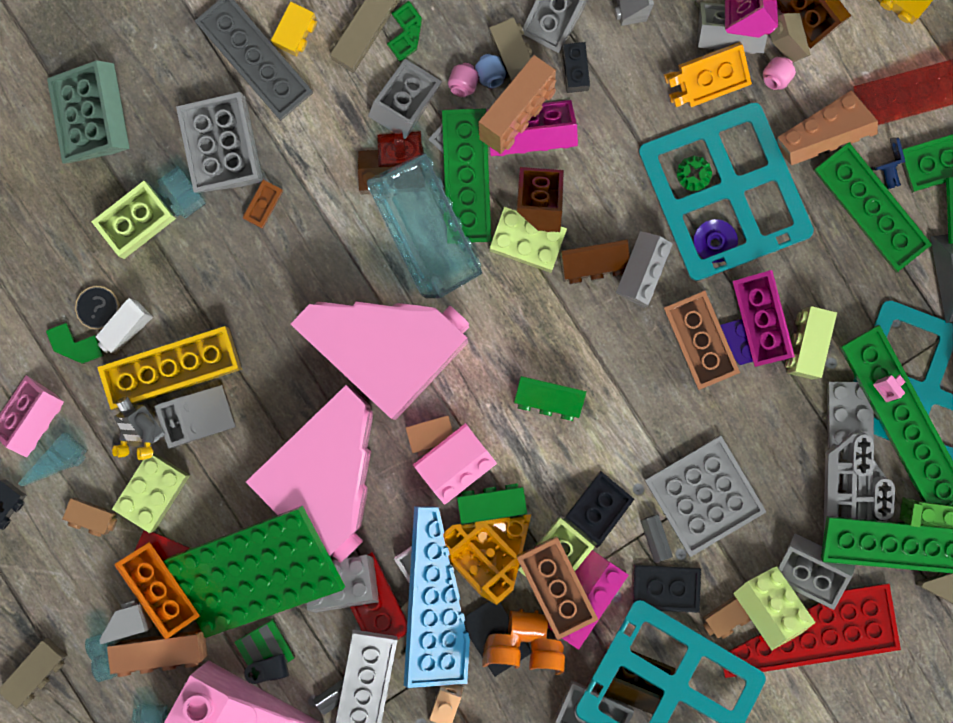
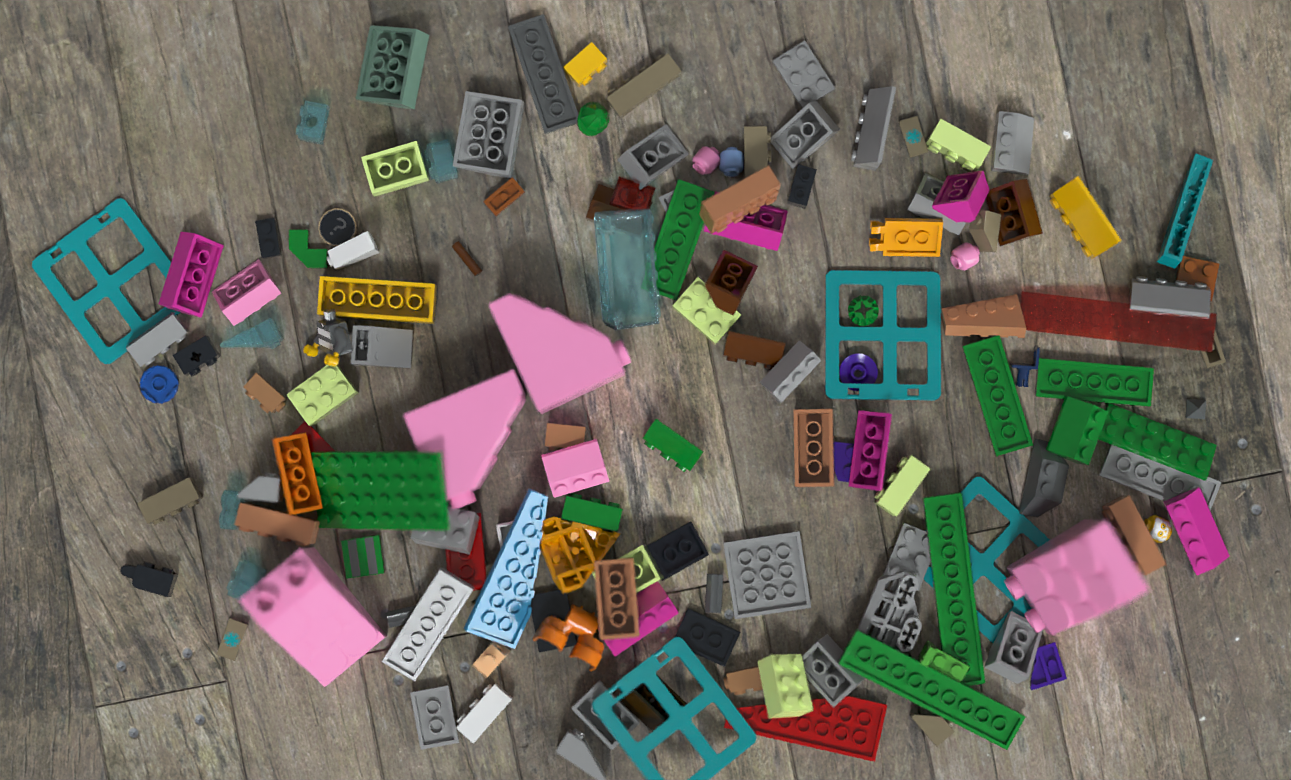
camera: 25 degrees right, 0 degrees up
(27, 348) = (268, 238): none -> black plate
(34, 216) = (316, 133): none -> clear light blue brick
(249, 286) = (466, 258): none -> reddish brown piece
(271, 669) = (362, 573): black piece -> none
(324, 84) = (592, 119): none -> green piece
(408, 40) = (682, 97): green tile -> none
(890, 388) = (949, 545): bright pink tile -> none

